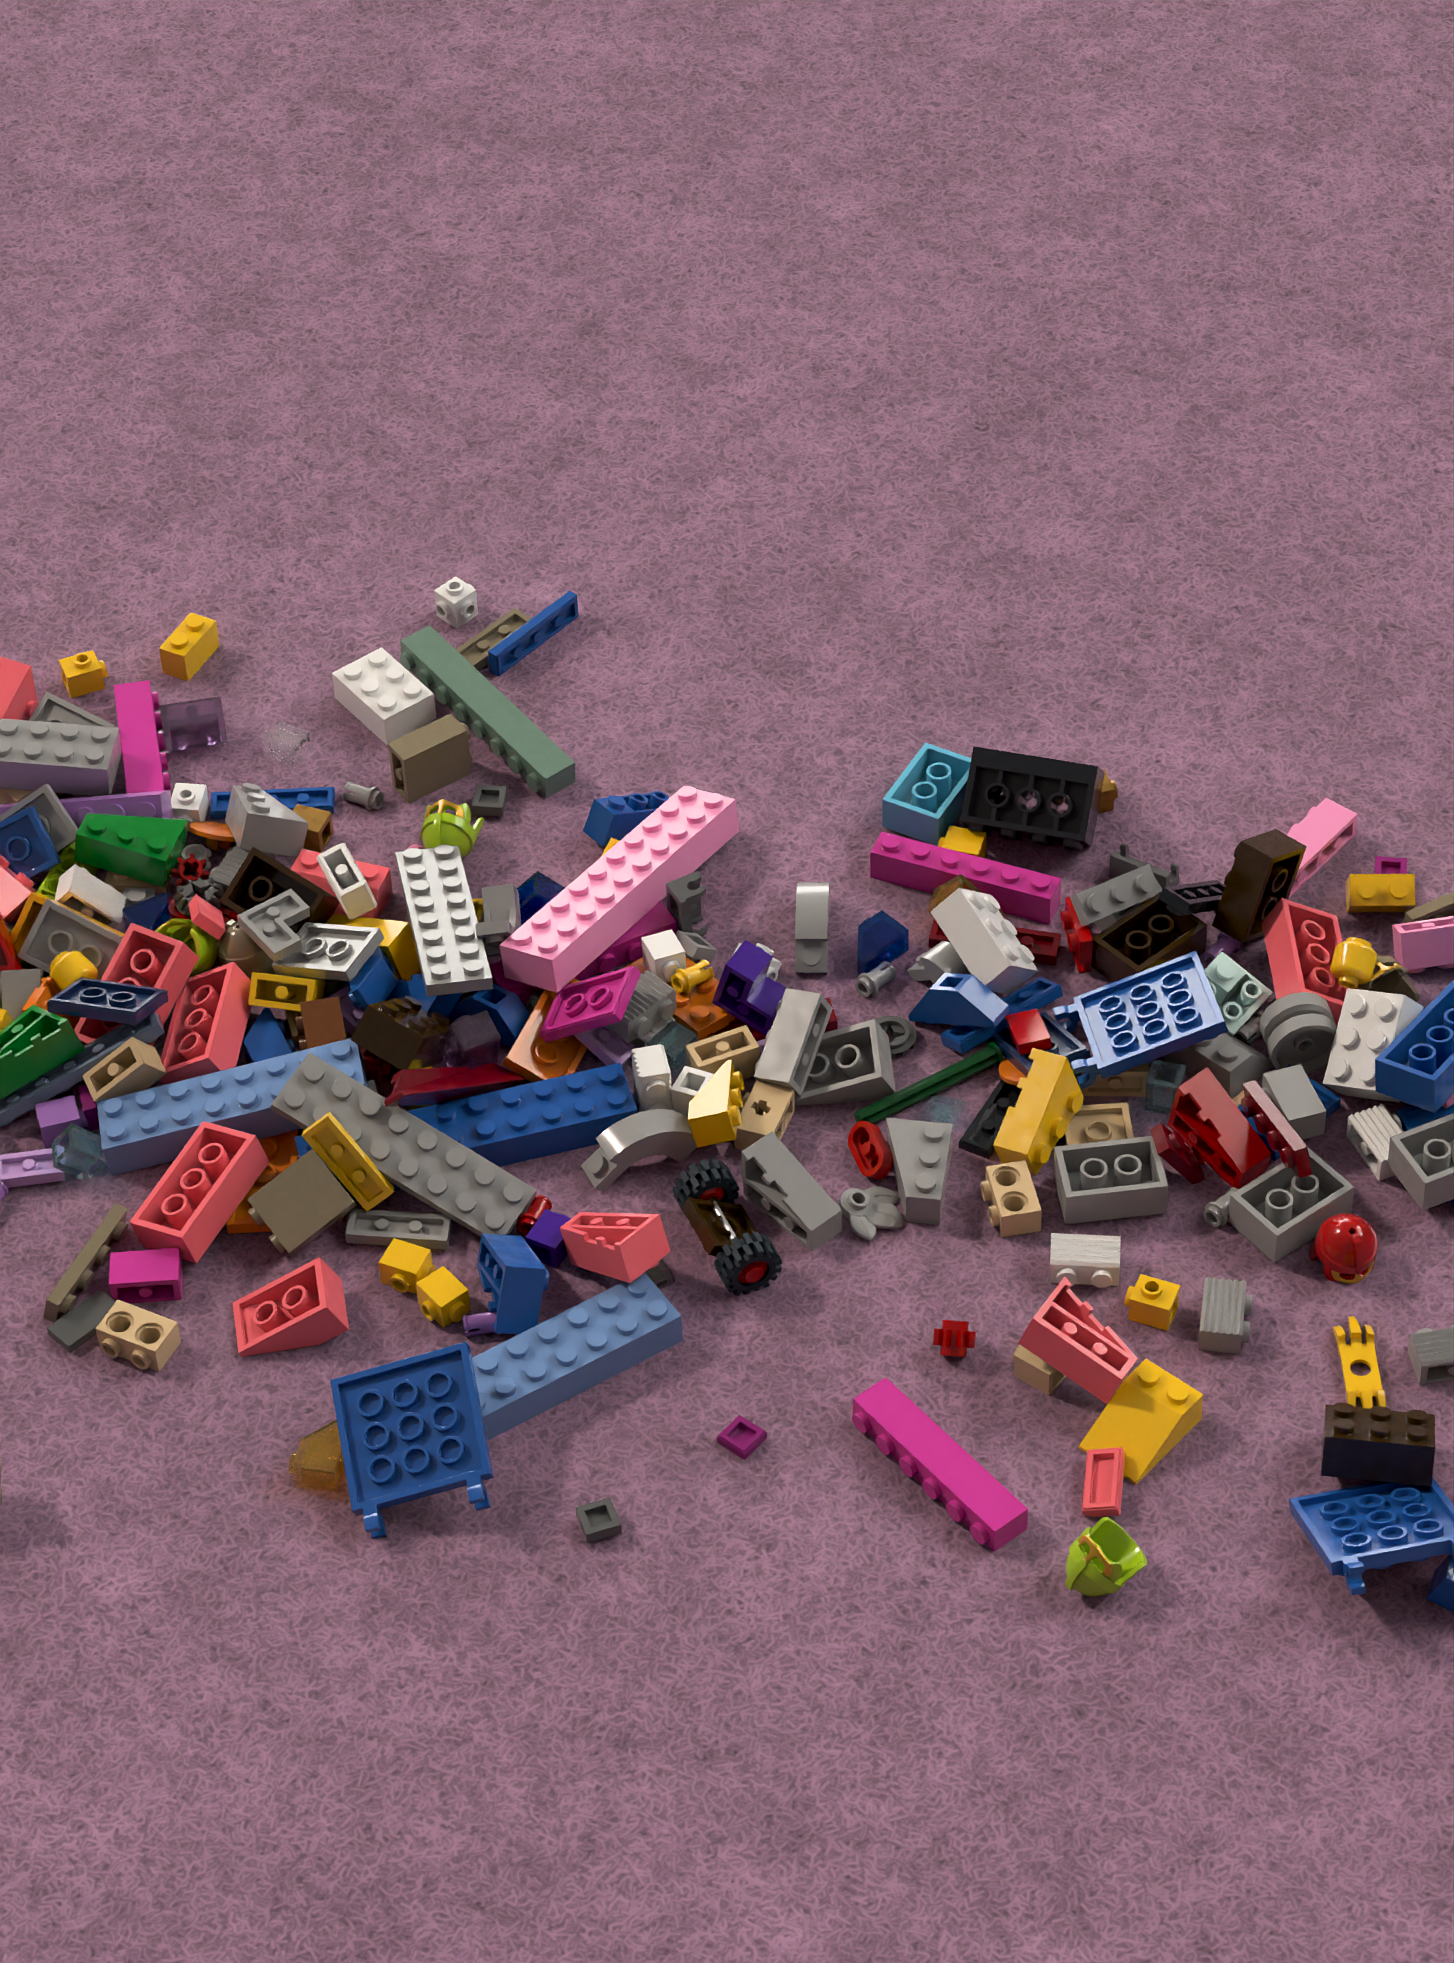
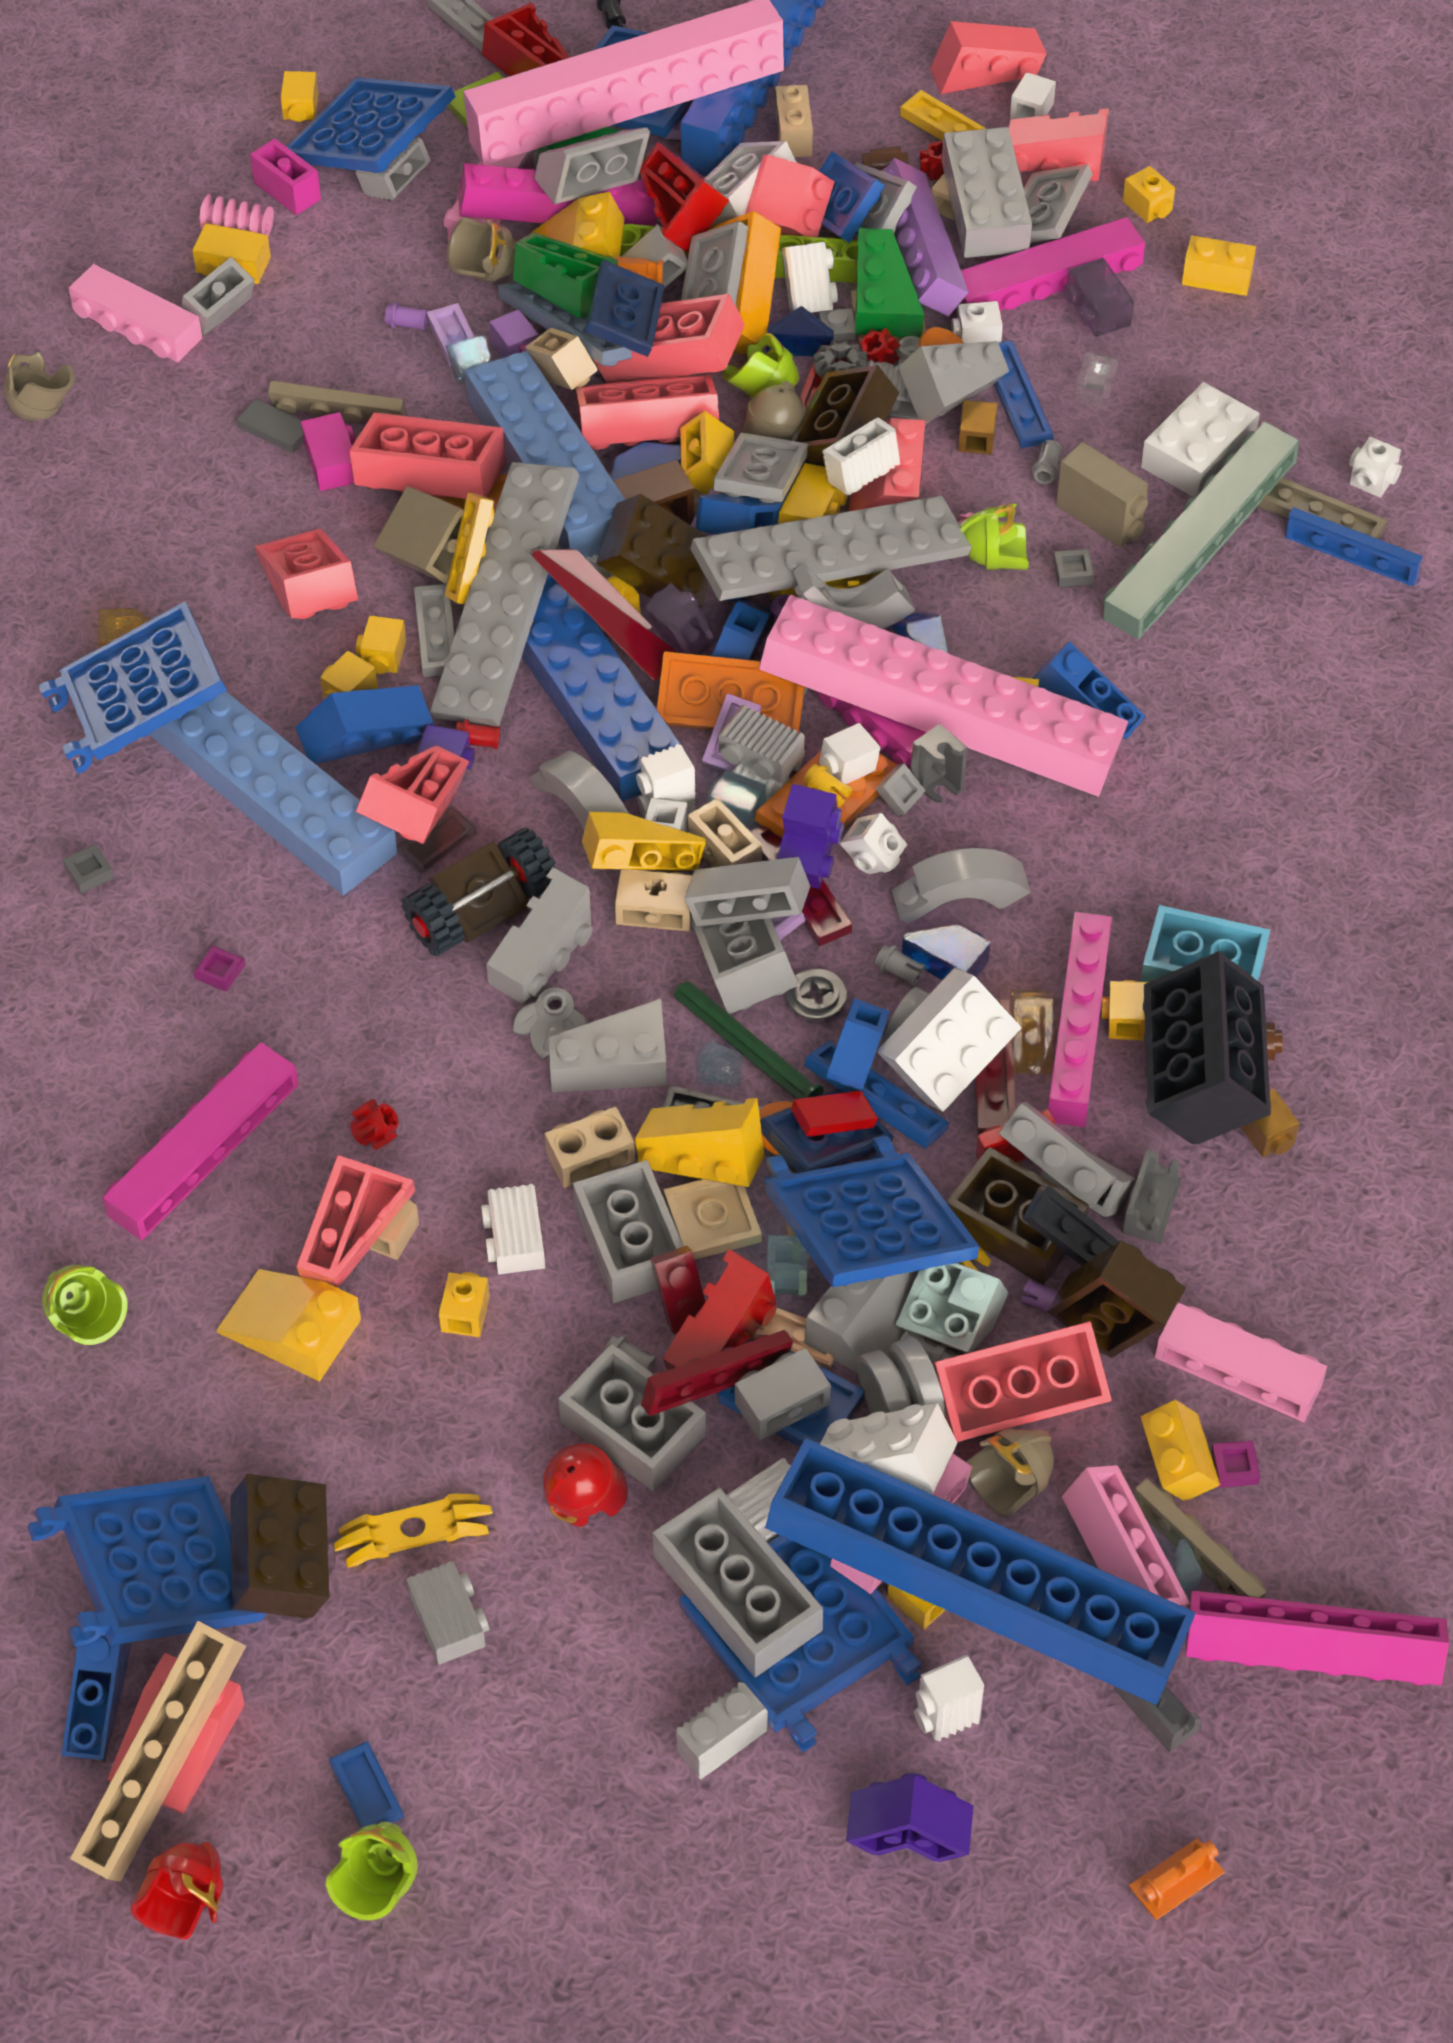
camera: 75 degrees right, 10 degrees up
(69, 967) = (679, 279): yellow head -> none
(138, 1336) = (253, 464): tan brick -> none
(207, 917) = (793, 365): coral tile -> none
(270, 924) = (782, 406): light grey plate -> none
(590, 1004) = (737, 694): dark pink tile -> none
(870, 1150) = (638, 997): red plate -> none
(1103, 1482) = (204, 1296): coral tile -> none
(1223, 1315) = (458, 1376): light grey brick -> none
(1353, 962) = (1005, 1414): yellow head -> none

